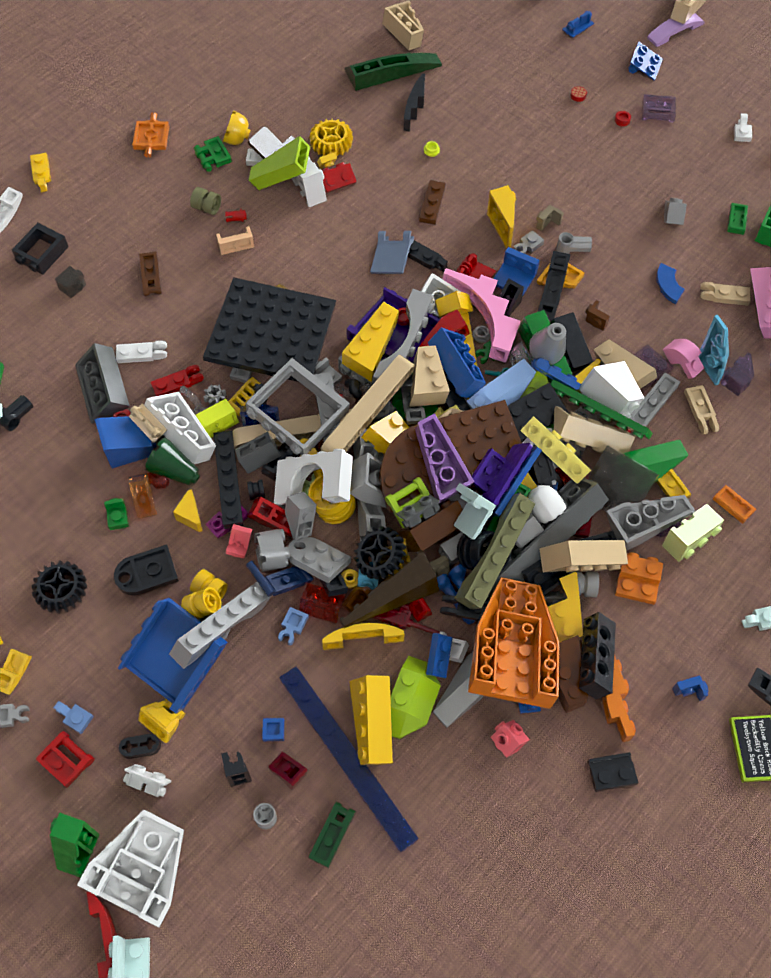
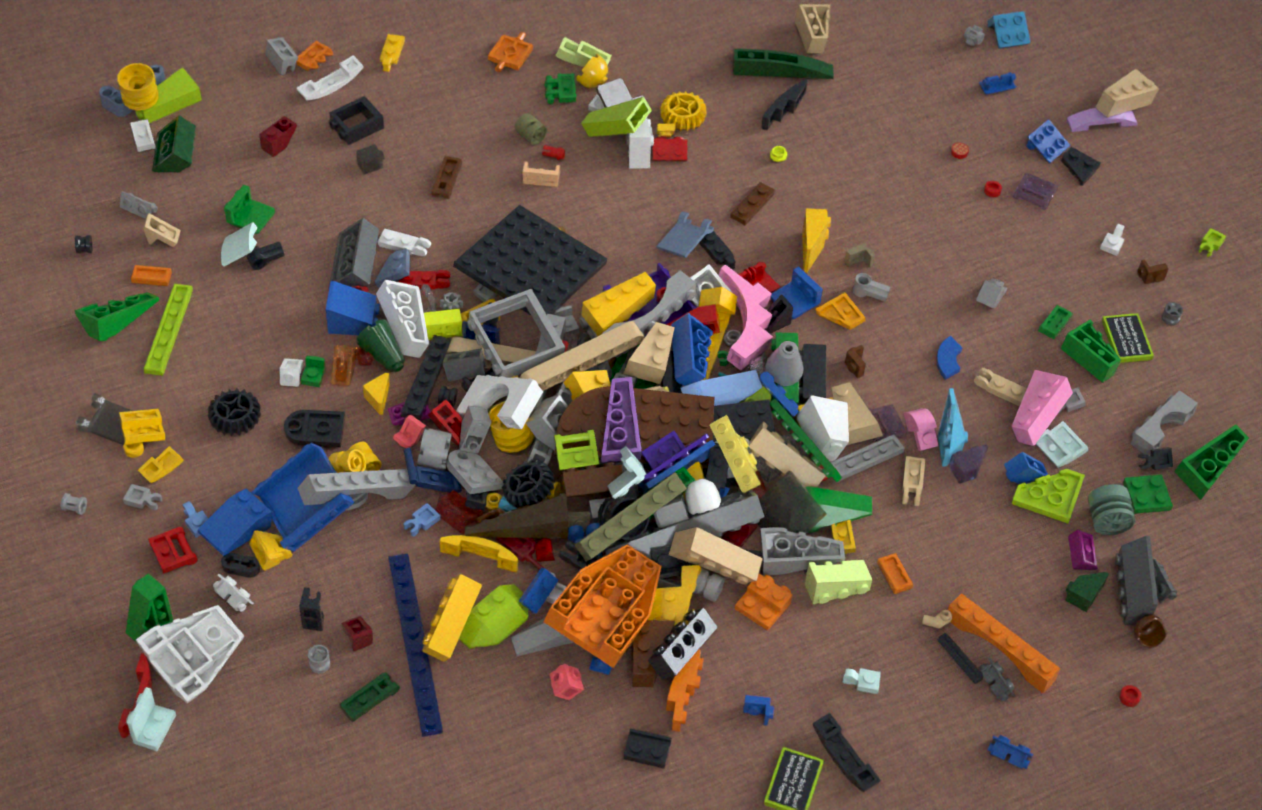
camera: 20 degrees right, 10 degrees down
(95, 522) = (290, 372): none -> white bracket
(115, 705) = (236, 522): none -> blue slope
(145, 380) = (395, 268): none -> sand blue wing
(147, 422) = (376, 301): tan hinge -> none
(213, 116) = (579, 54): none -> yellowish green slope
(273, 729) = (361, 595): blue plate -> none
(411, 514) = (586, 457): dark grey hinge -> none
(529, 242) = (828, 272): light grey plate -> none
(554, 284) = (828, 318): black slope -> none
(680, 72) = (1080, 164): none -> black wing

